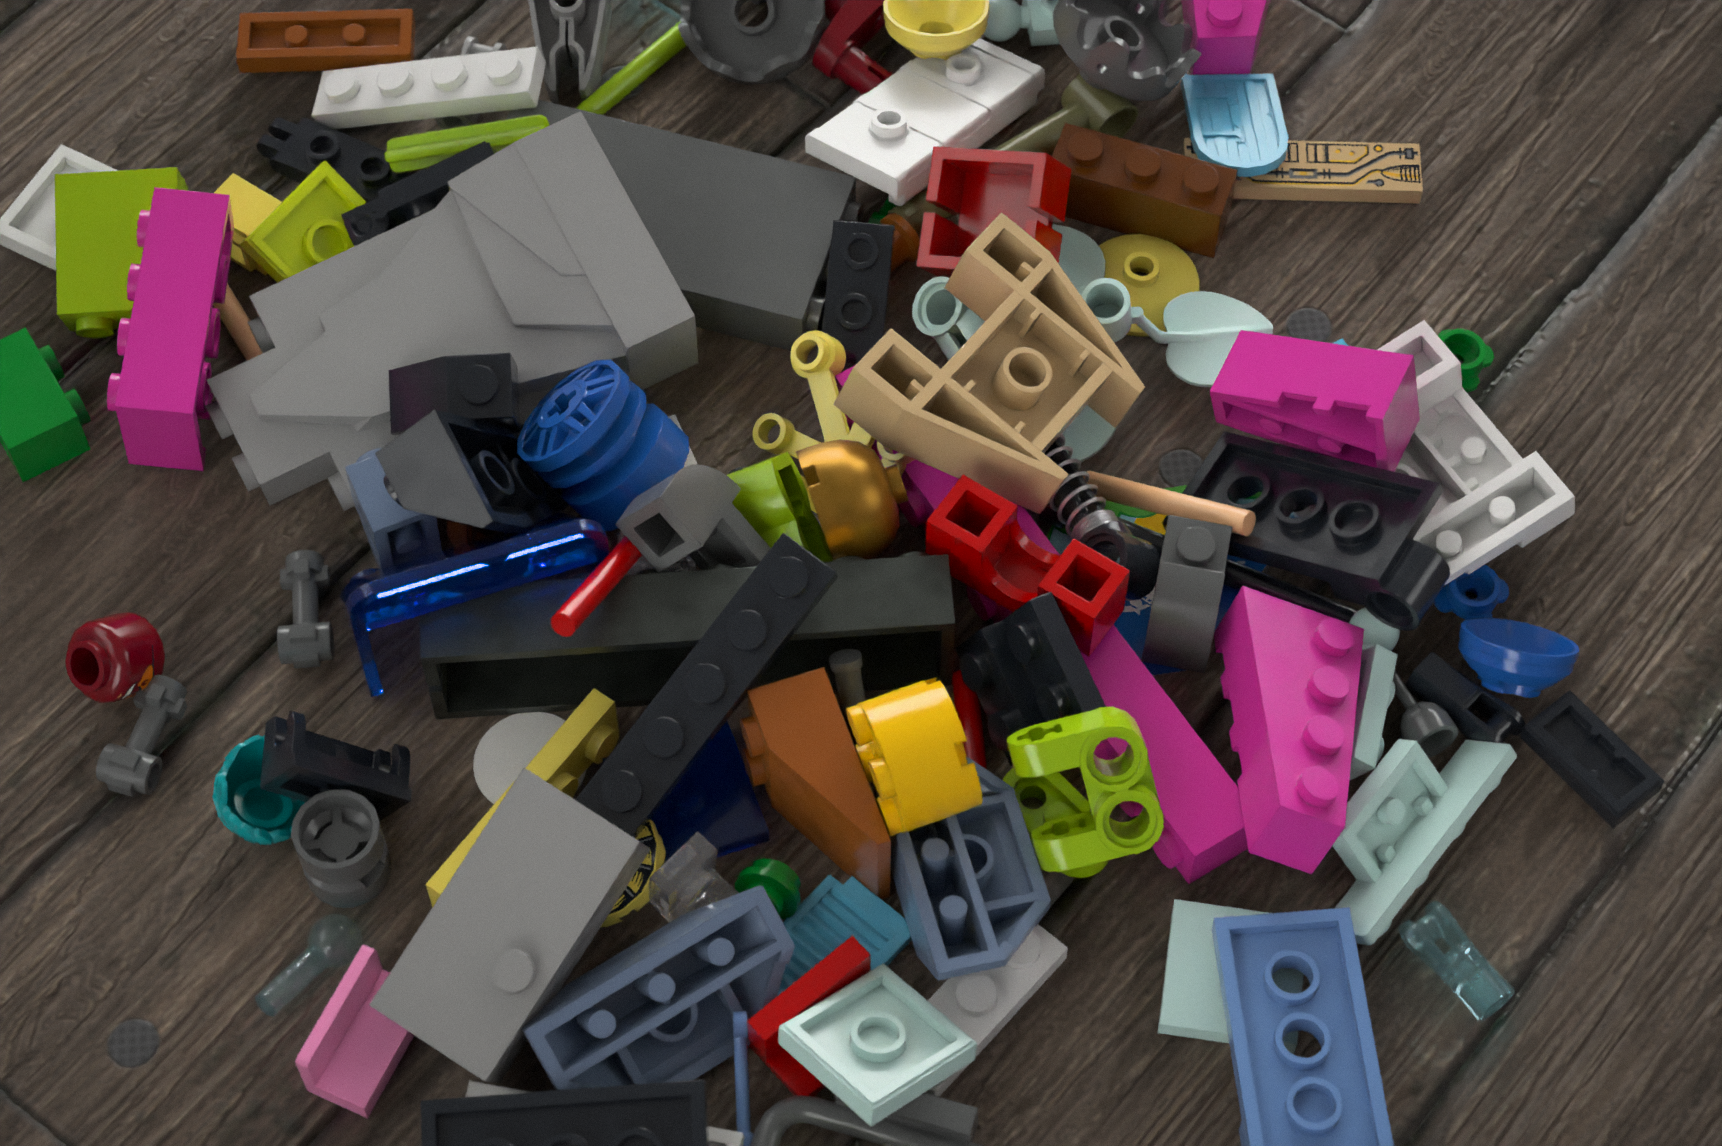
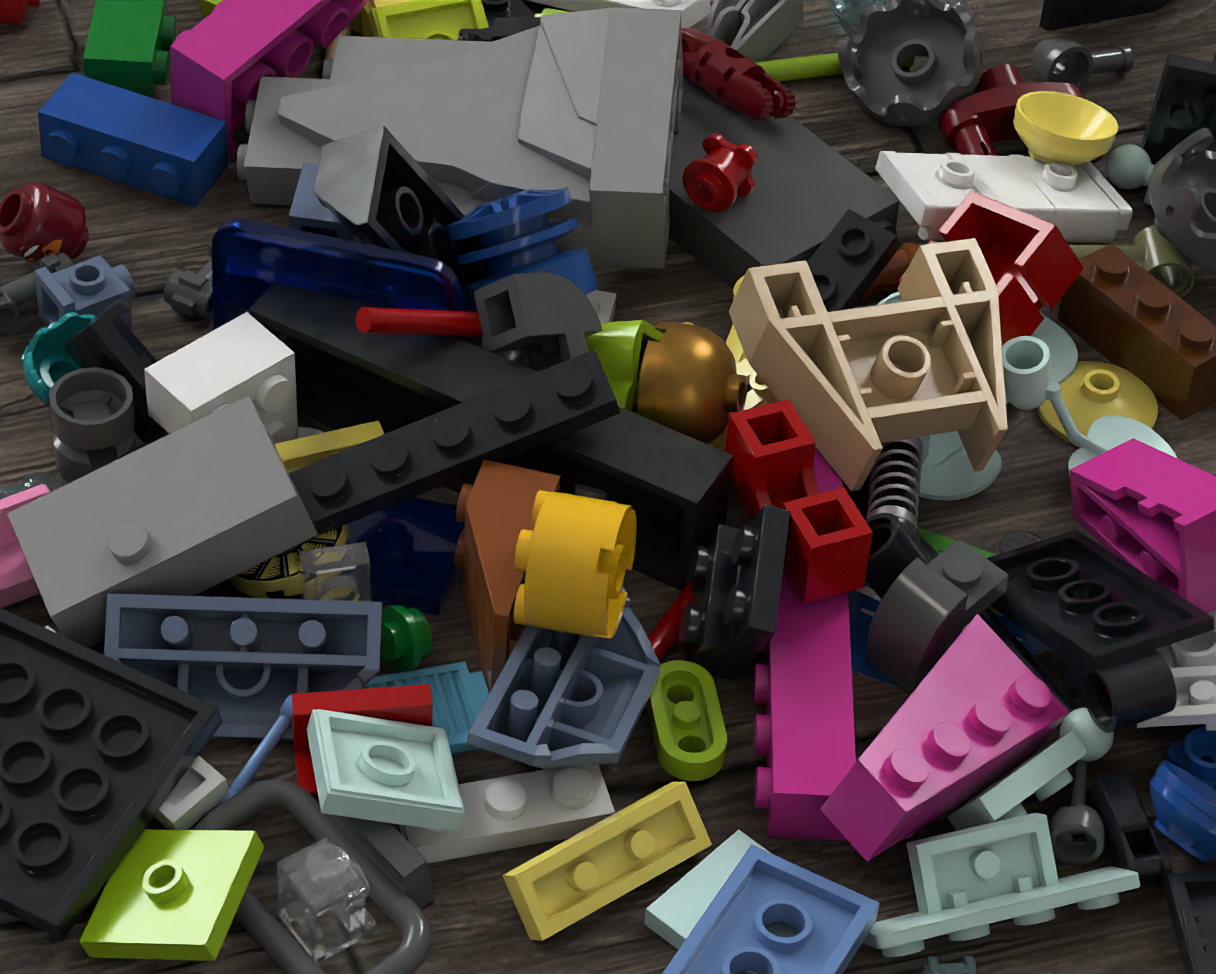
camera: 30 degrees right, 15 degrees down
(114, 506) = (133, 139): none -> blue brick
(215, 727) = (83, 290): none -> sand blue brick
(448, 746) = (221, 369): none -> white brick
(462, 385) = (450, 153): black slope -> none
(634, 131) = (733, 78): none -> dark red hinge
(699, 248) = (720, 174): none -> red brick
(1092, 834) = (725, 683): lime piece -> none
(1098, 1000) = (607, 860): none -> light yellow plate
(1171, 502) = (951, 528): light nougat bar -> none

